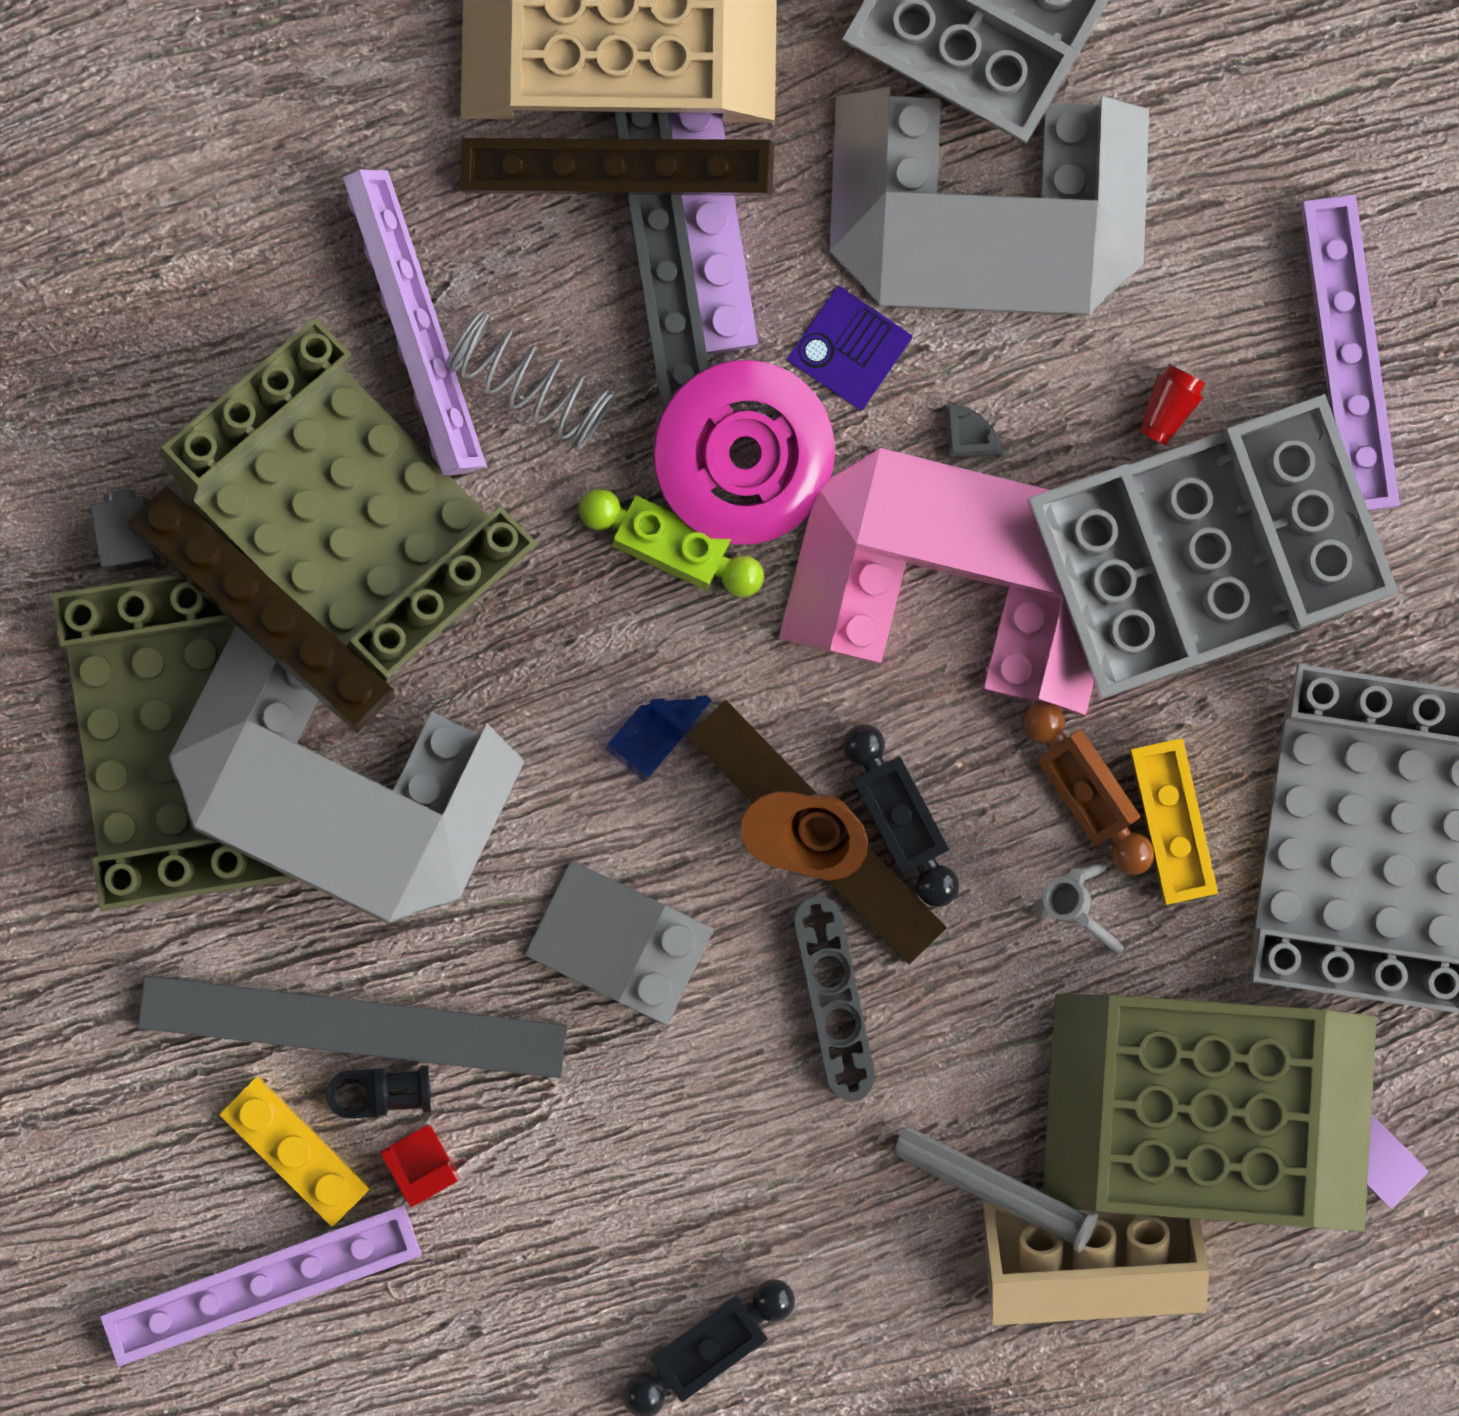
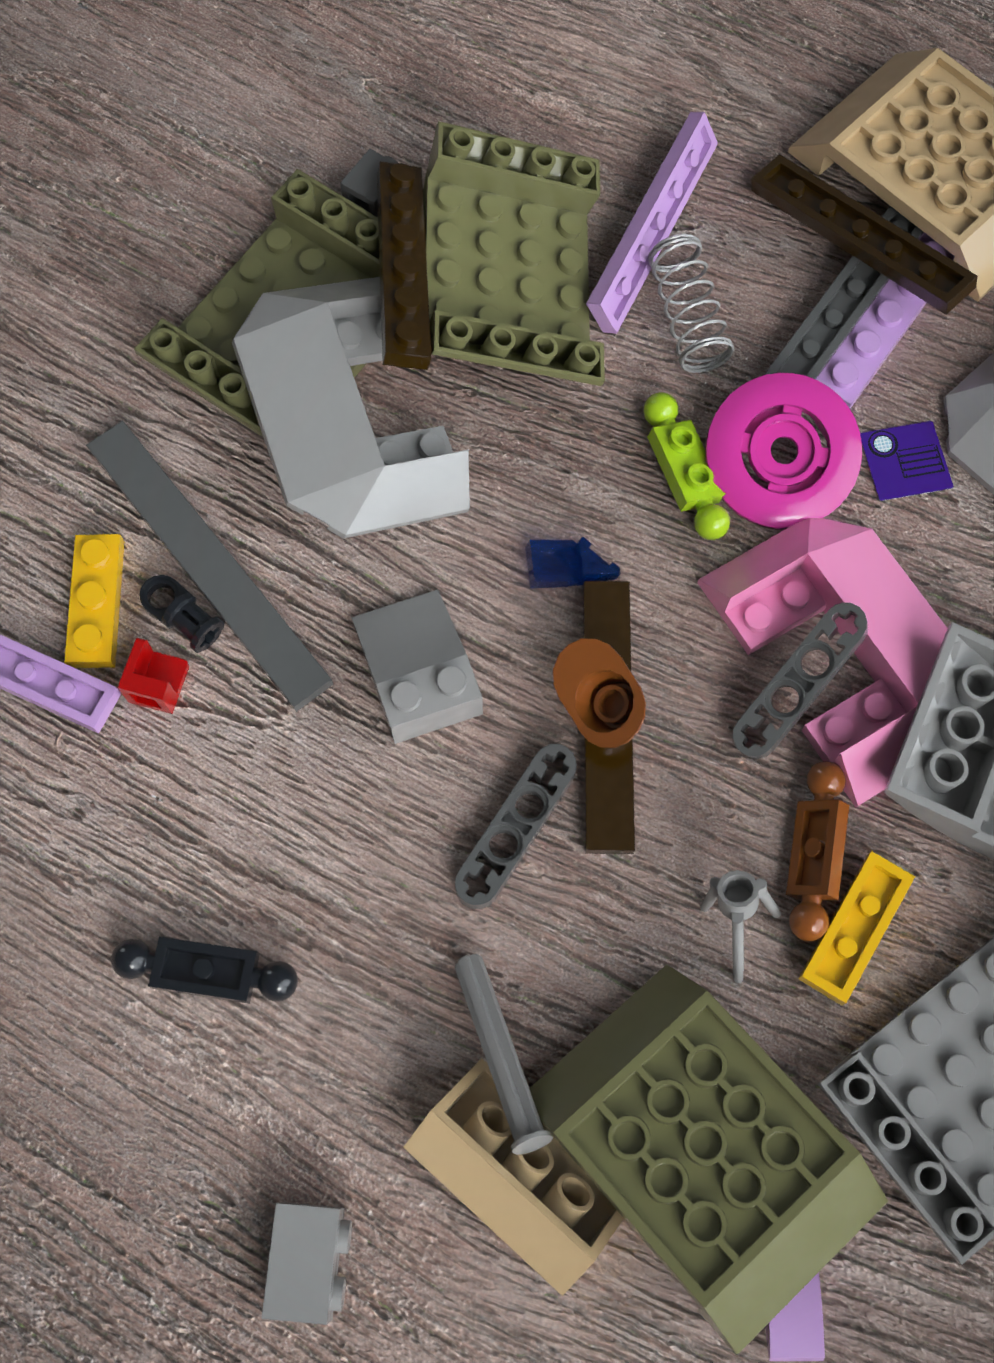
camera: 45 degrees right, 15 degrees down
(901, 815) = (673, 753): black plate -> none
(954, 660) = (806, 685): none -> dark grey beam
(970, 434) = (938, 571): dark grey tile -> none

